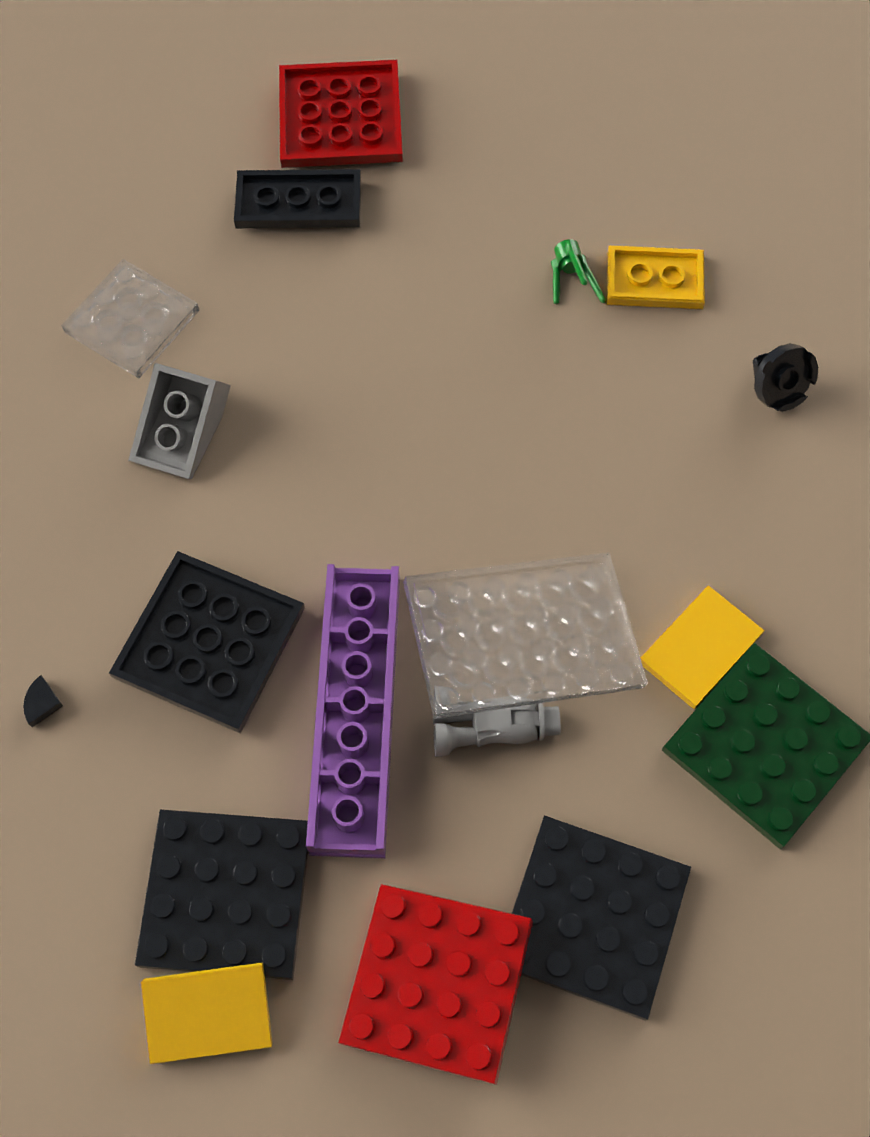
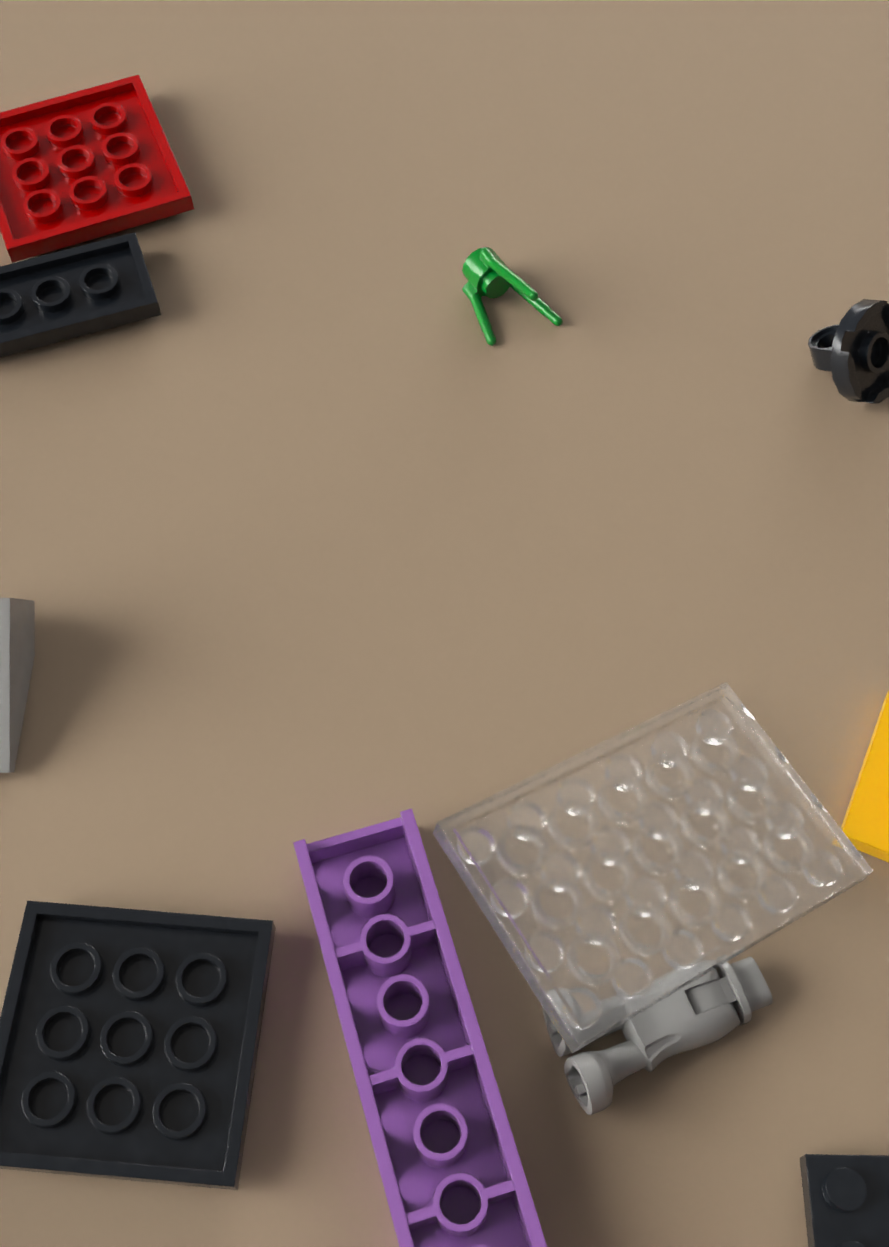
camera: 20 degrees left, 5 degrees down
(655, 277) = (619, 271): yellow tile -> none

